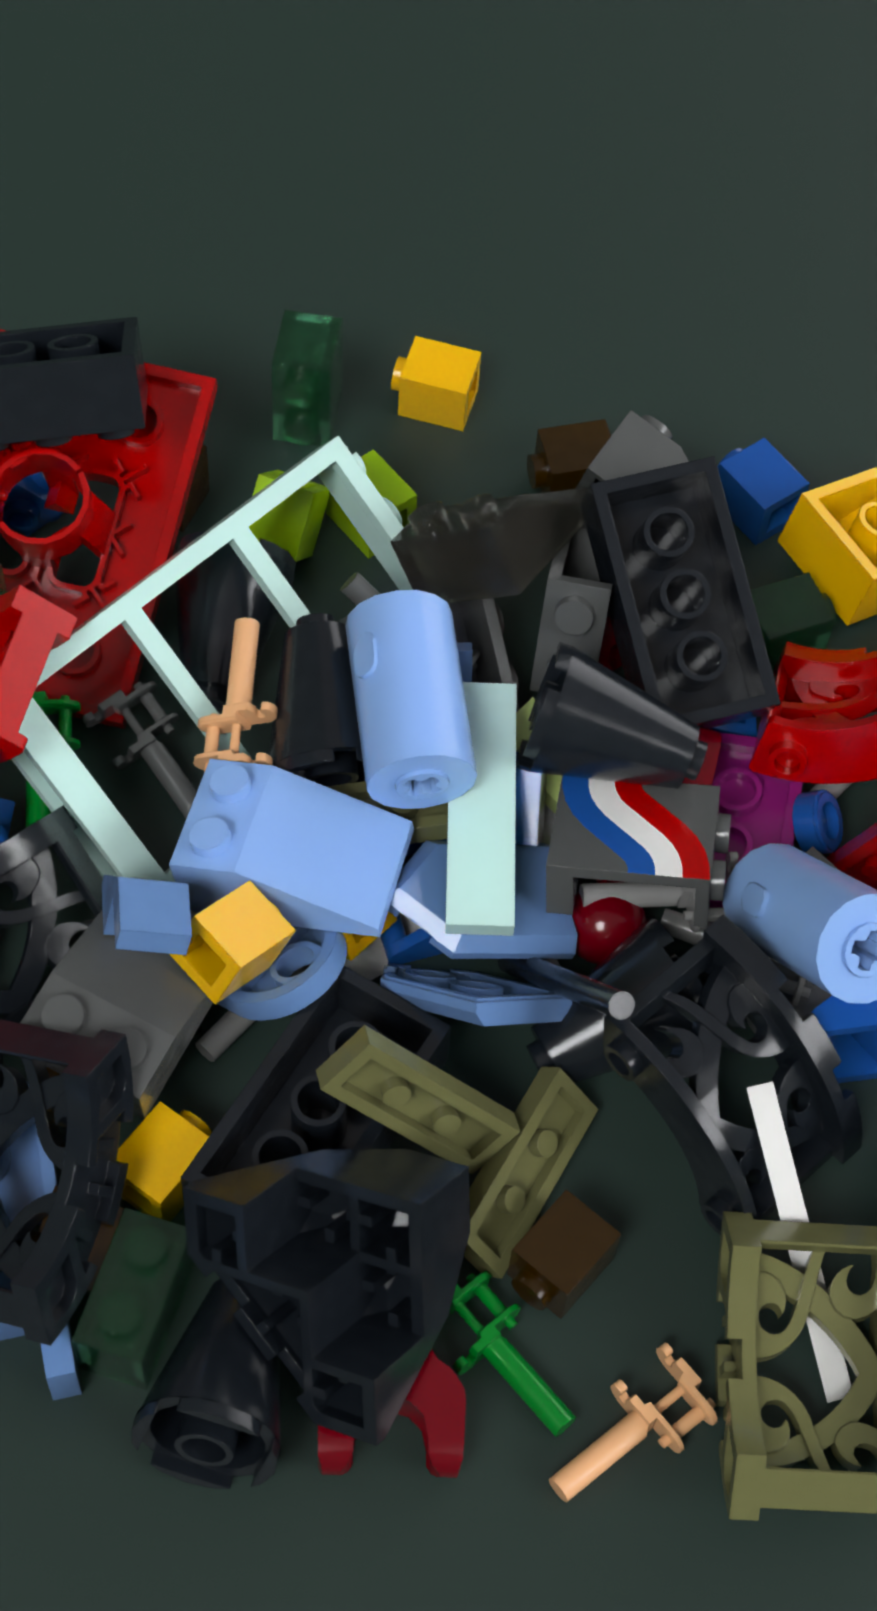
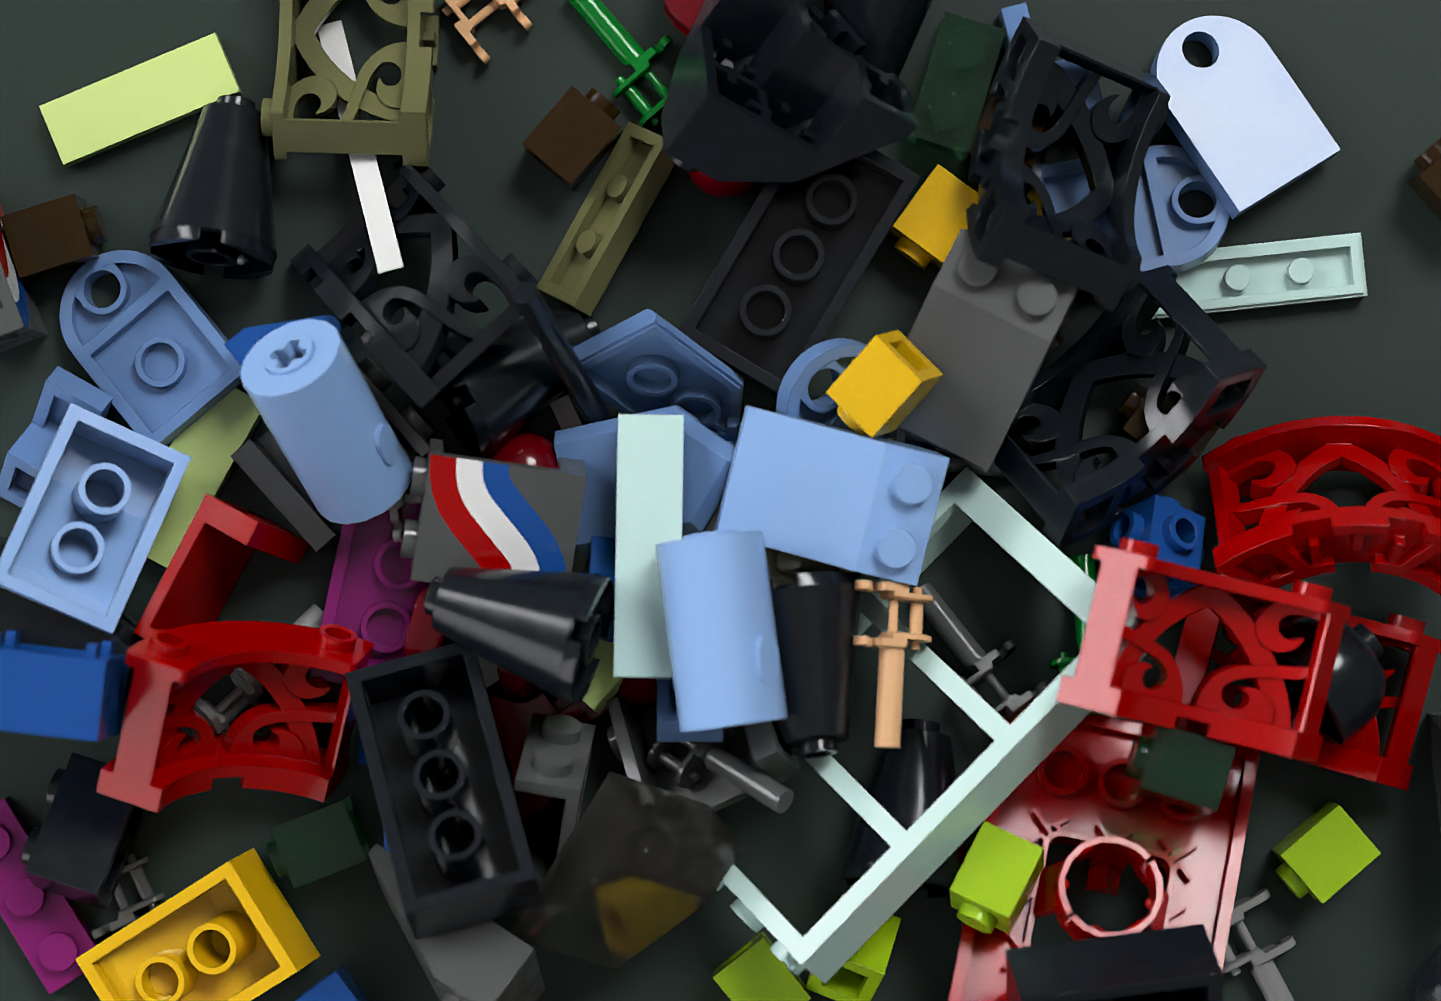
camera: 175 degrees left, 30 degrees up
(147, 525) = (996, 879): none -> lime brick
(147, 914) = (965, 402): medium blue slope -> none
(417, 1099) = (708, 243): olive plate -> none
(817, 821) = (307, 590): blue tile -> none

